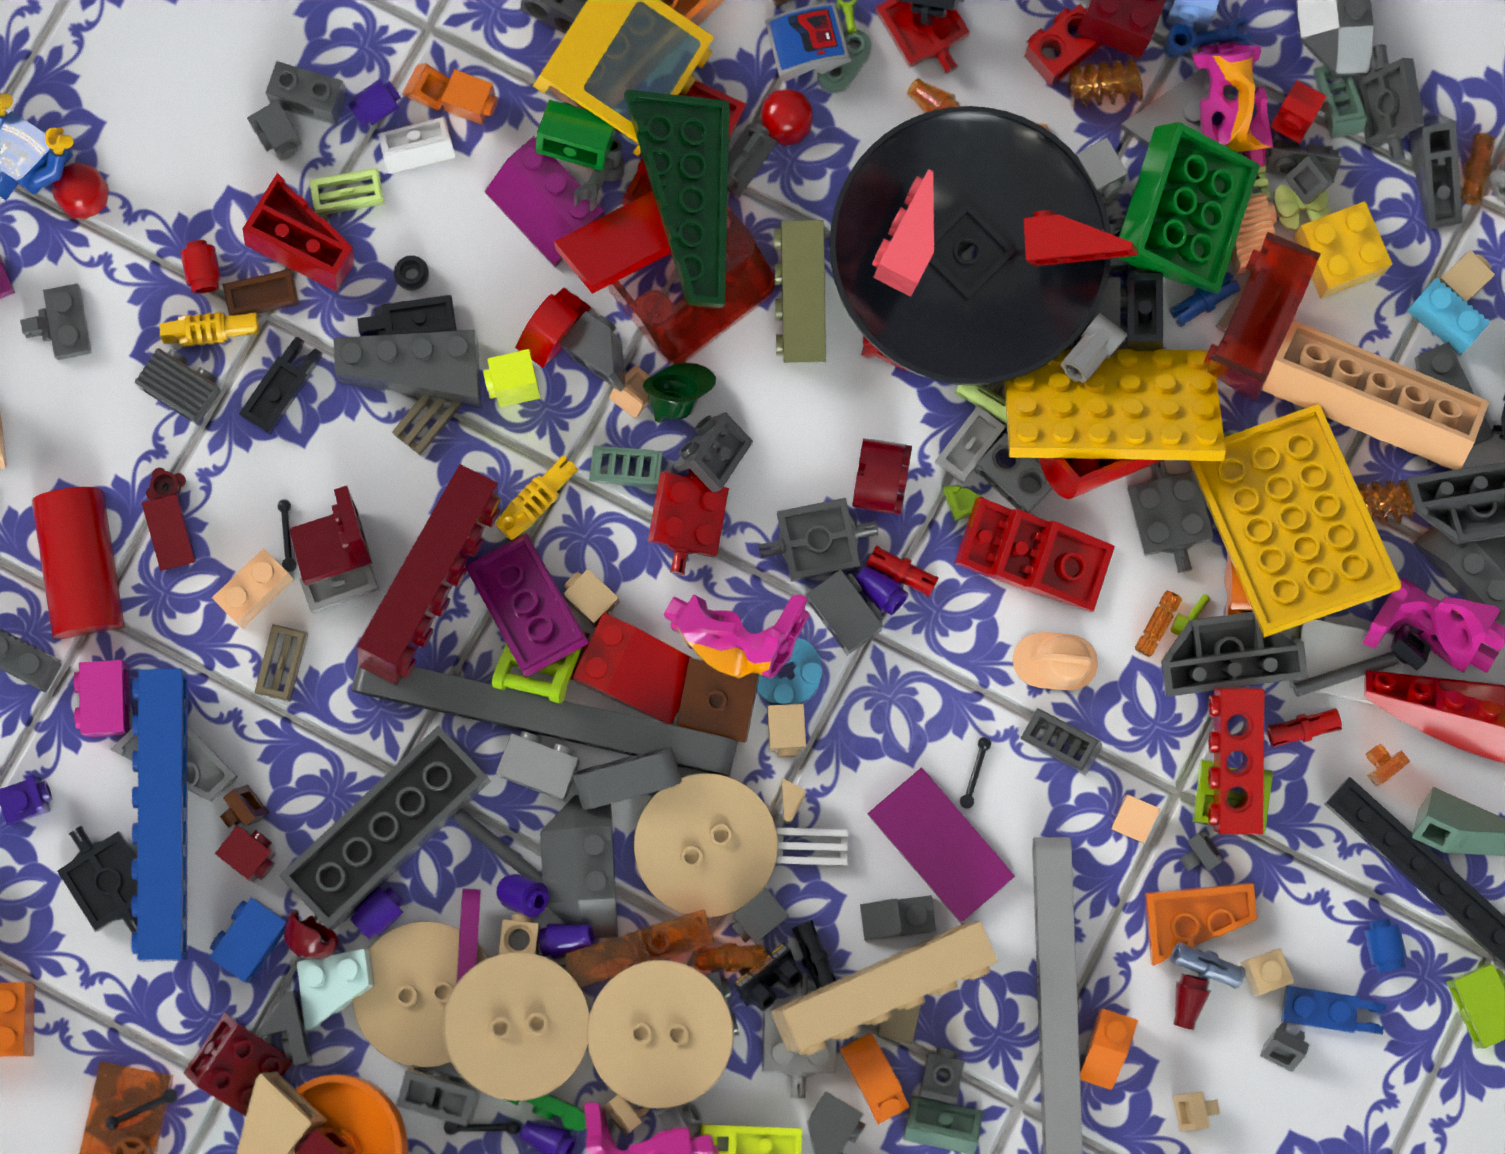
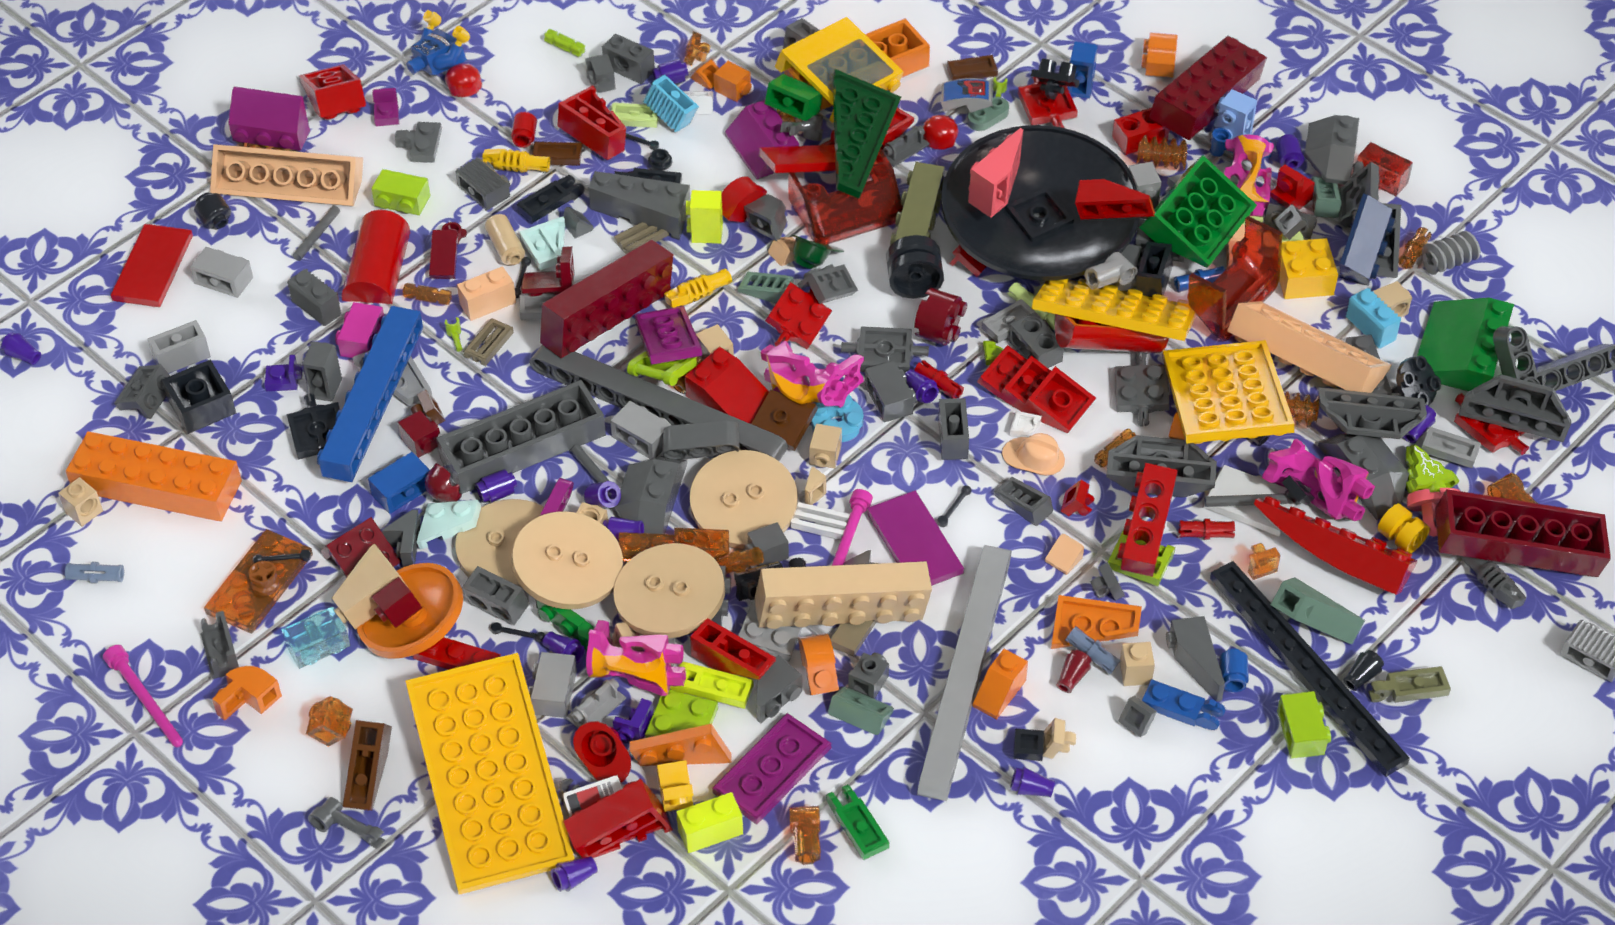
camera: 20 degrees right, 30 degrees down
(67, 434) = (401, 192): none -> lime brick
(81, 793) = (322, 370): none -> dark grey brick
(168, 602) = (427, 293): none -> clear orange axle
(201, 76) = (564, 42): none -> lime axle
(230, 660) = (454, 331): none -> lime hand
(245, 483) = (504, 239): none -> tan brick
(302, 470) = (545, 242): none -> light aqua wing
(332, 418) = (576, 222): none -> dark grey slope
(390, 240) = (652, 144): none -> black hinge
(395, 47) = (695, 49): none -> clear orange tile
(398, 174) = (670, 103): none -> medium azure brick
(769, 1105) = (728, 651): none -> red slope
(824, 397) = (914, 266): none -> black wheel
(855, 808) = (859, 502): none -> dark pink piece
(947, 661) = (953, 429): none -> dark grey brick
(1031, 612) = (1024, 424): none -> white tile
(1130, 727) = (1077, 499): none -> red tile
(1162, 1126) = (1028, 744): none -> black plate
(1277, 34) = (1289, 151): none -> dark purple brick
(1332, 928) = (1196, 653): none -> dark grey slope
(1412, 36) = (1393, 169): none -> clear red brick
(1419, 198) = (1366, 241): none -> slope

